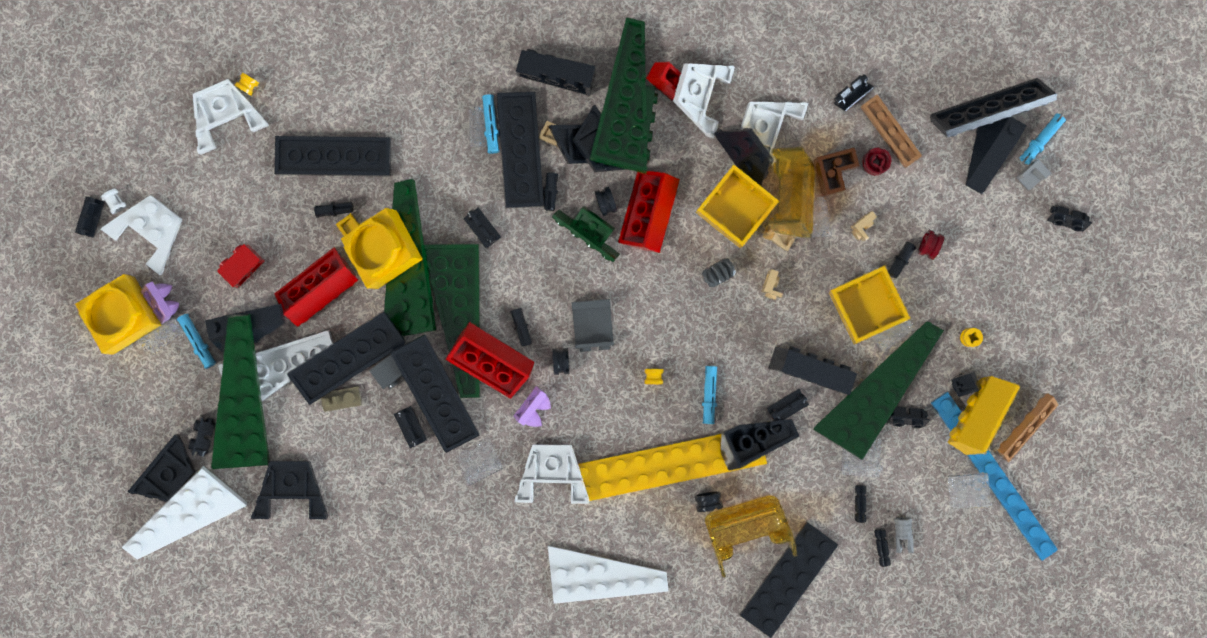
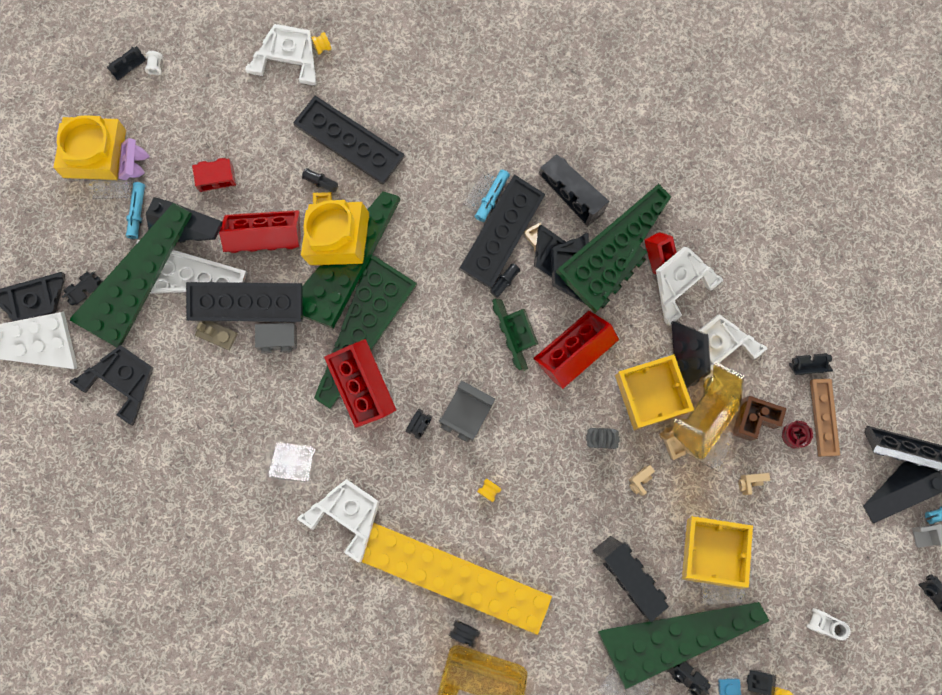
camera: 30 degrees right, 10 degrees down
(154, 223) = (171, 99): white wing -> none
(410, 427) = (255, 395): black hinge -> none
(435, 393) = (295, 380): black plate -> none
(482, 227) = (428, 272): black hinge -> none
(521, 327) = (405, 374): black axle -> none
(526, 413) = (360, 449): lavender tile -> none
(589, 577) = (318, 633): white wing -> none
(605, 201) = (545, 317): black wheel -> none
(709, 395) = (521, 547): medium azure pin -> none
(752, 441) = (537, 604): black wedge -> none
(788, 406) = (588, 595): black hinge -> none
(901, 260) = (769, 533): black axle -> none
(931, 244) = (803, 536): dark red wheel -> none
(966, 337) = (785, 641): yellow wheel -> none
(990, 303) = (825, 624): none -> white piece

